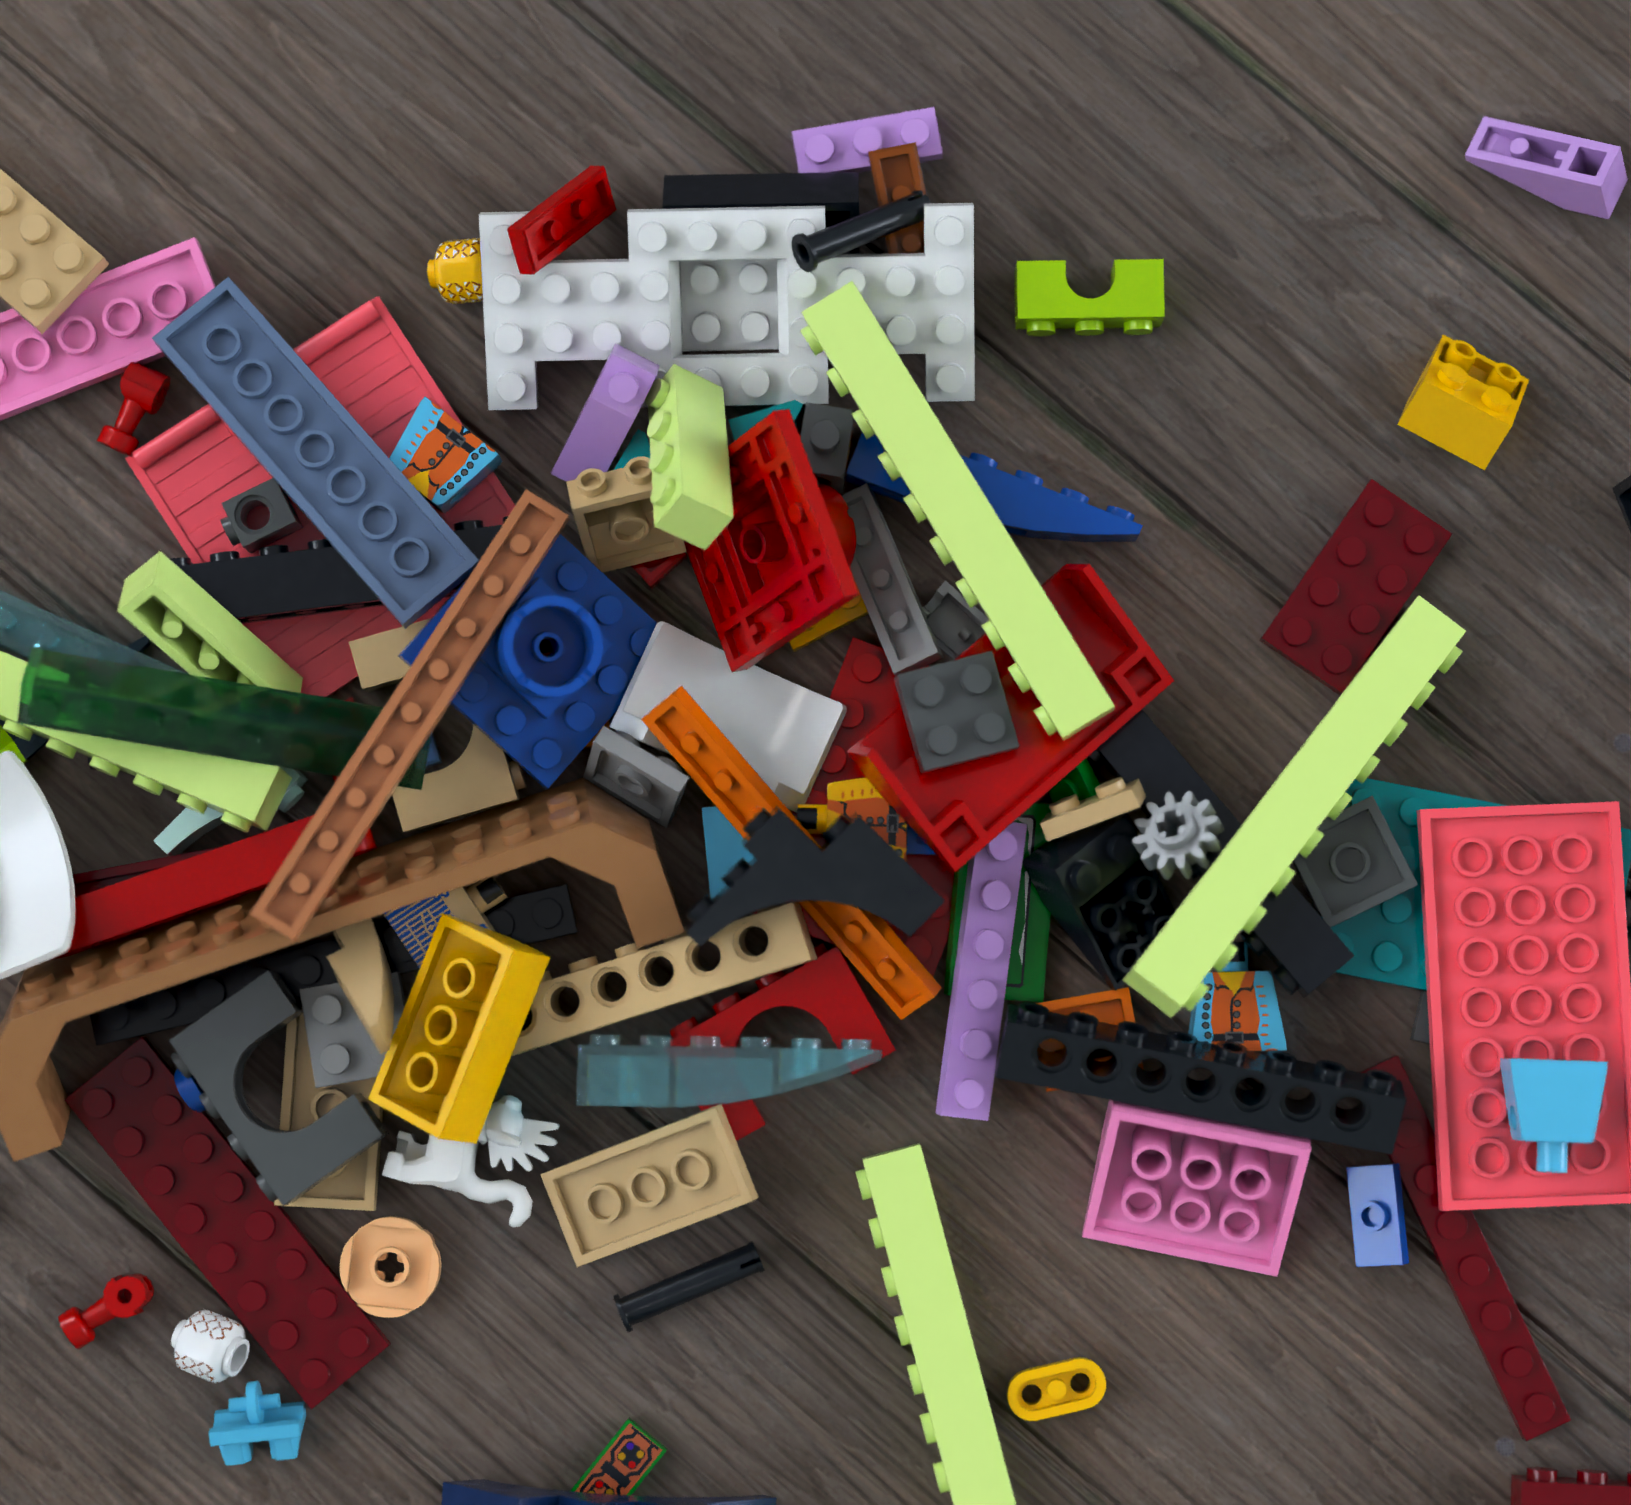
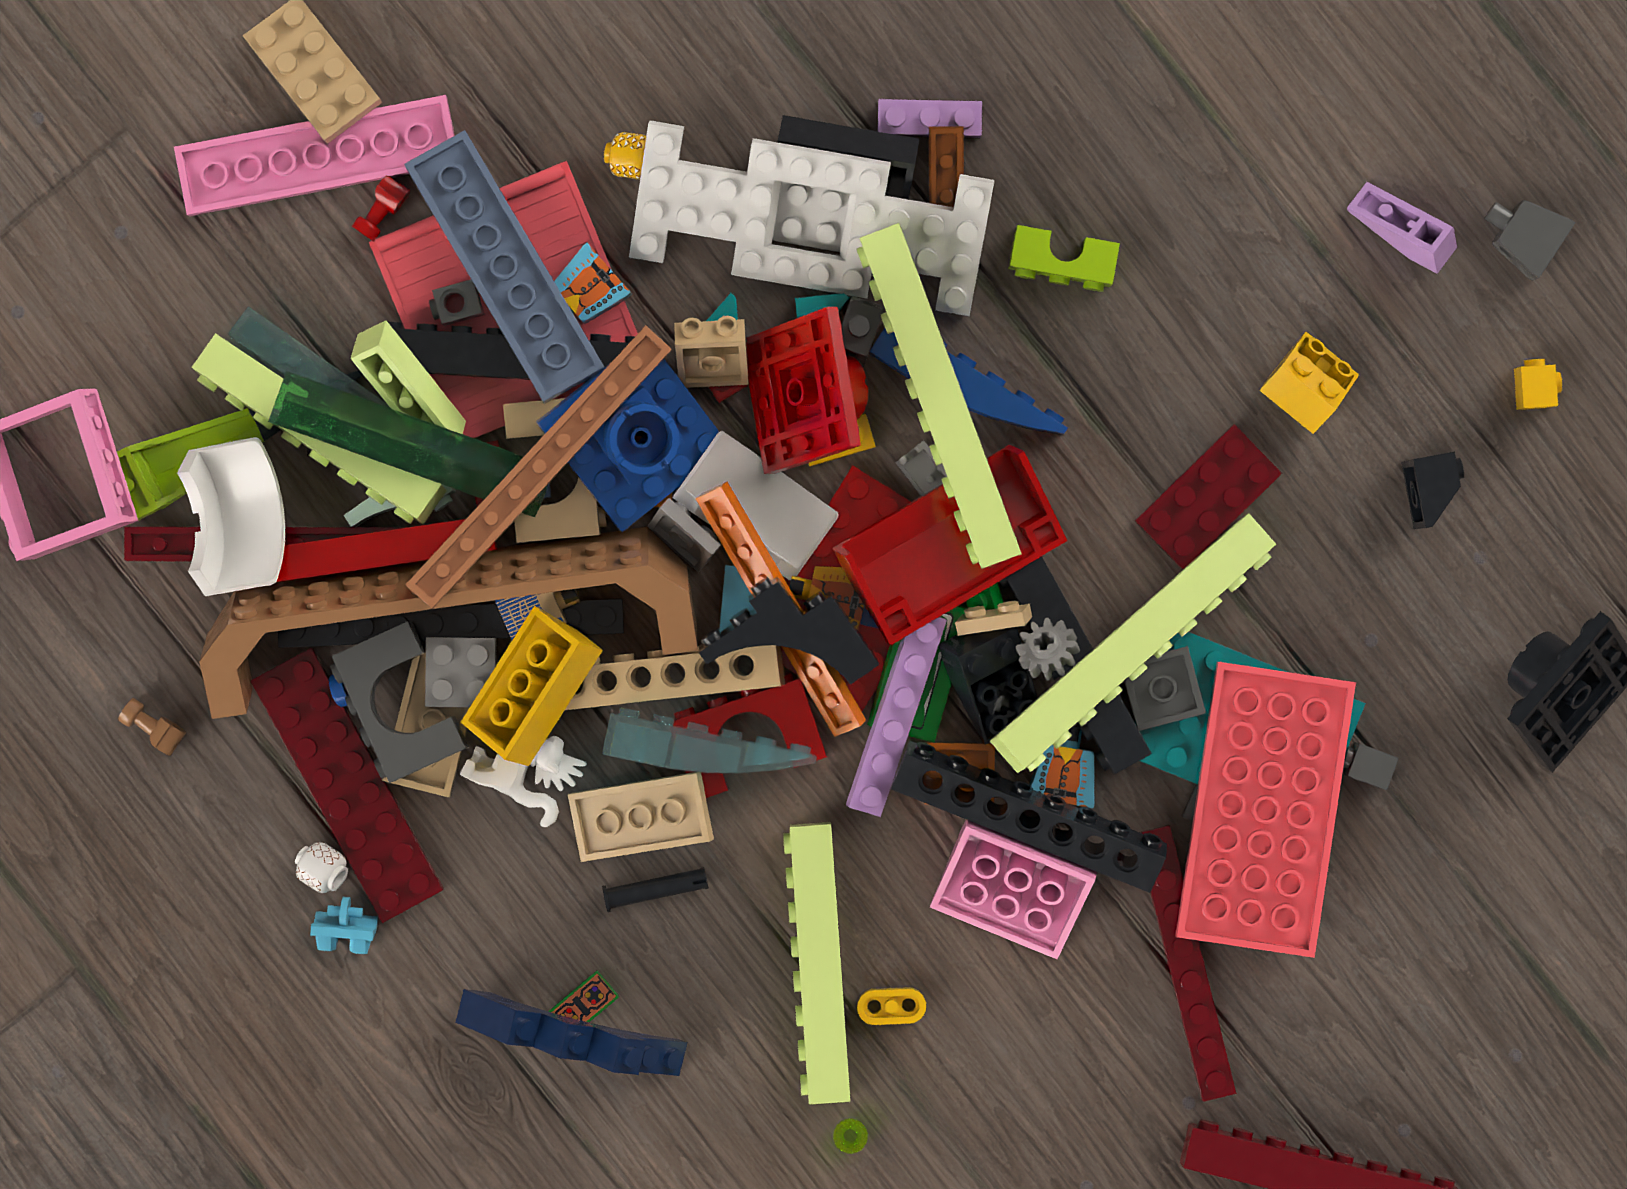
camera: 10 degrees right, 5 degrees up
(121, 1298) = (266, 824): red leg -> none
(366, 979) = (473, 641): tan slope -> none
(369, 1285) = (436, 846): light nougat plate -> none
(561, 219) = (705, 135): red tile -> none
(607, 414) = (711, 278): lavender slope -> none
(689, 457) = (762, 323): yellowish green brick -> none
(858, 230) = (910, 185): black pin -> none
(888, 588) = (883, 437): light grey plate -> none
(956, 712) = (912, 535): dark grey plate -> none
(1377, 1215) = (1133, 931): plate -> none
(1553, 1105) = (1265, 880): medium azure torso -> none

